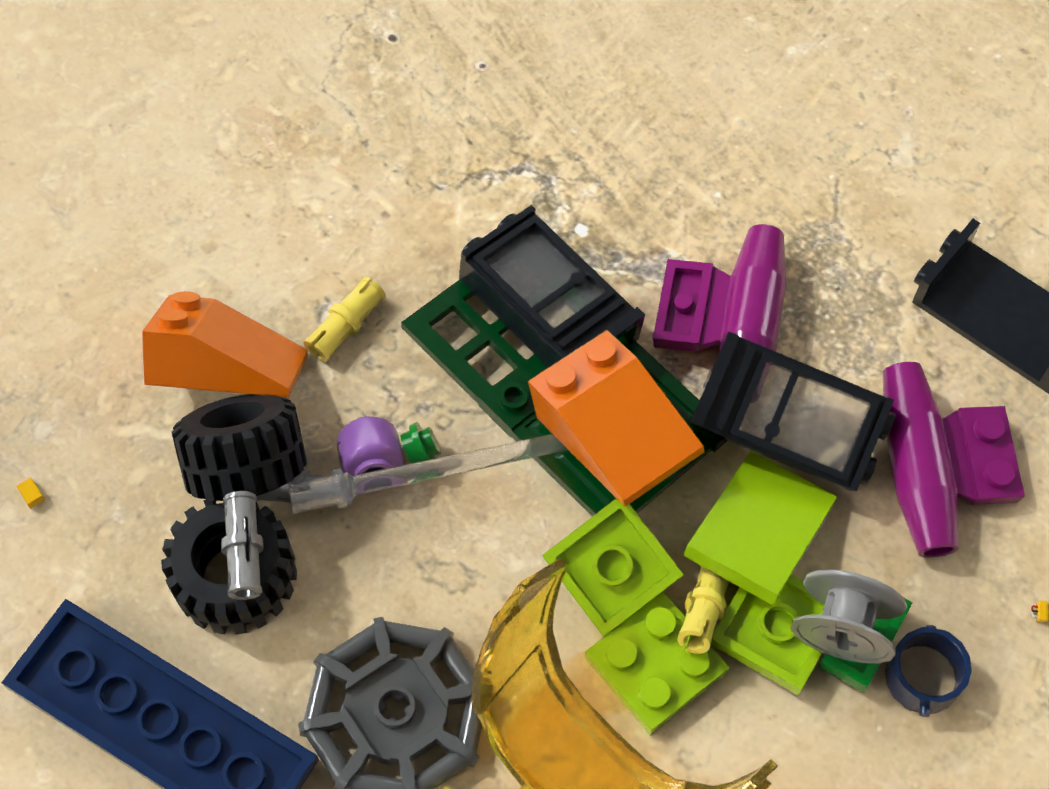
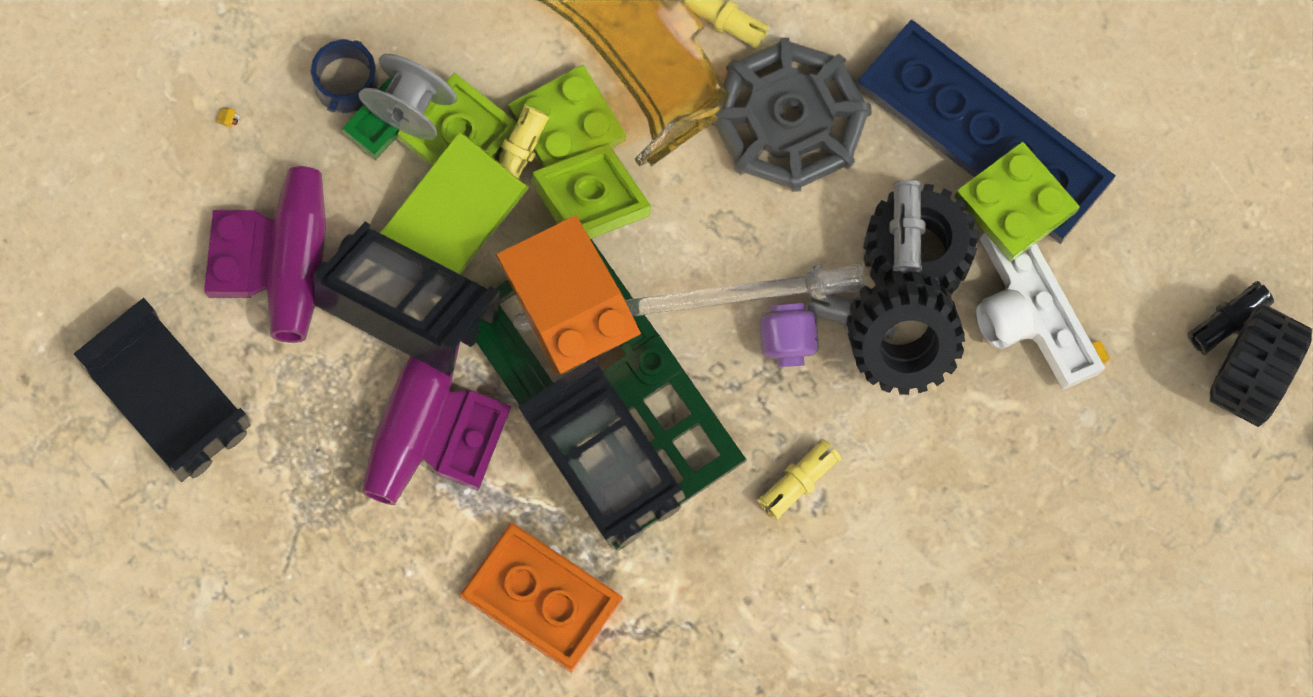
camera: 175 degrees left, 10 degrees up
(101, 523) = (1039, 311): none -> white plate
(118, 624) = (1017, 201): none -> lime plate
(217, 349) = (915, 439): orange slope -> none
(420, 443) = (742, 335): green plate -> none
(586, 186) = (541, 597): none -> orange tile

